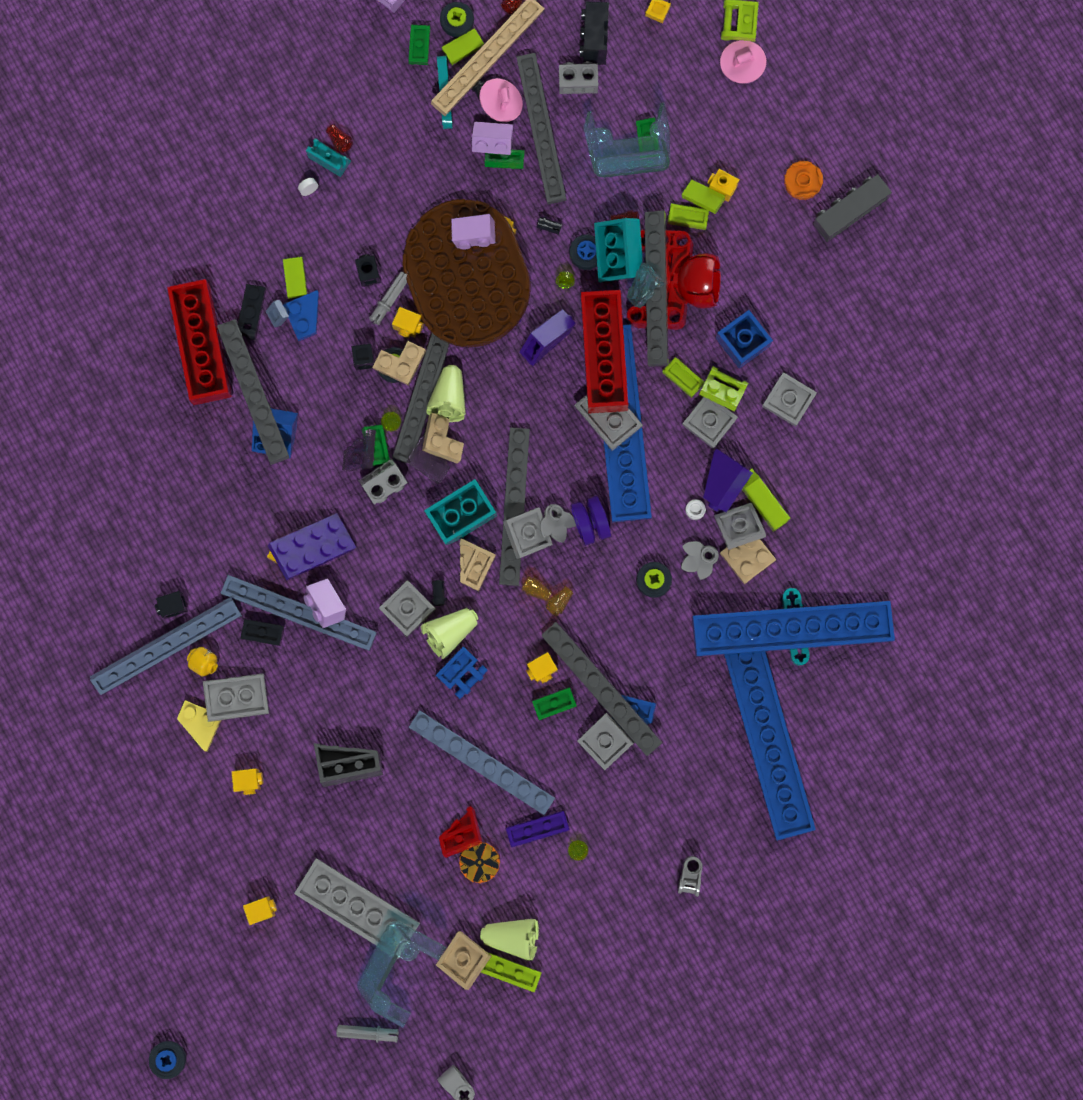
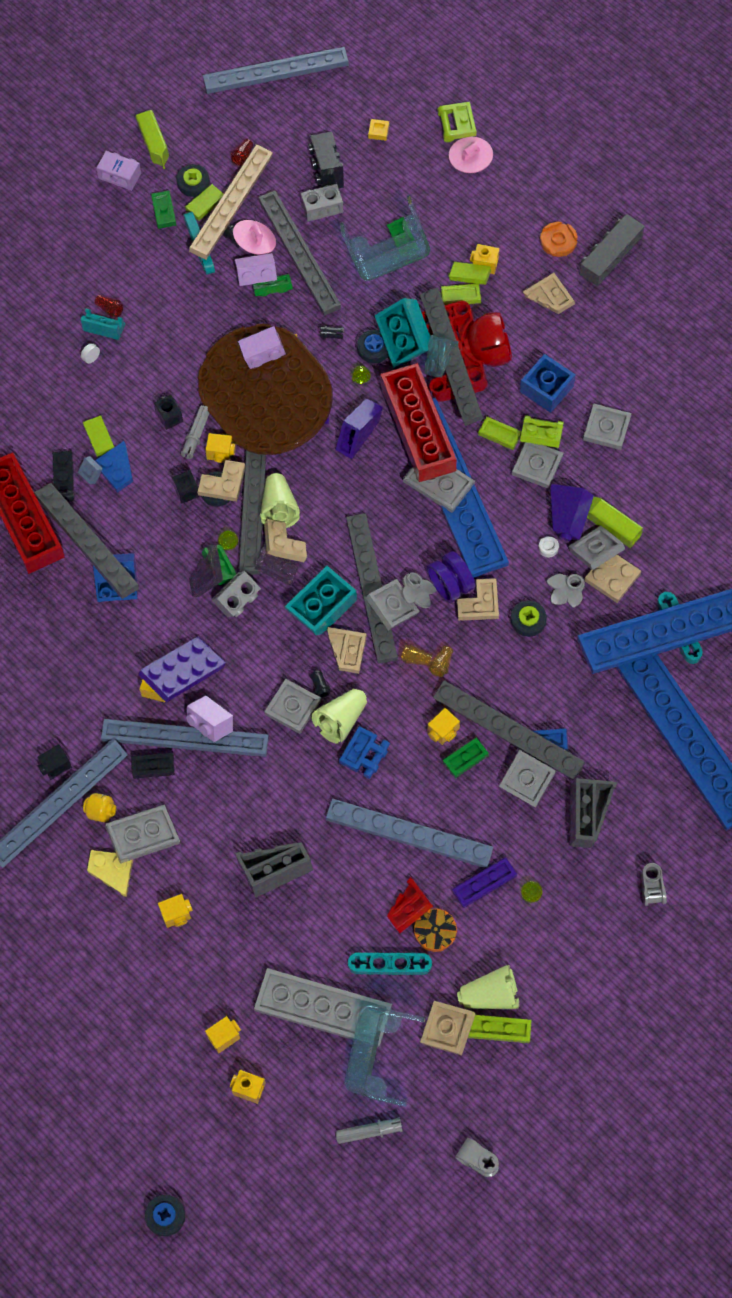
camera: 15 degrees left, 15 degrees down
(269, 963) = (247, 1086): none -> yellow brick
(429, 881) = (389, 968): none -> teal beam
(617, 554) = (483, 606): none -> tan plate
(652, 789) = (588, 809): none -> dark grey wedge
(776, 240) = (550, 294): none -> tan wing

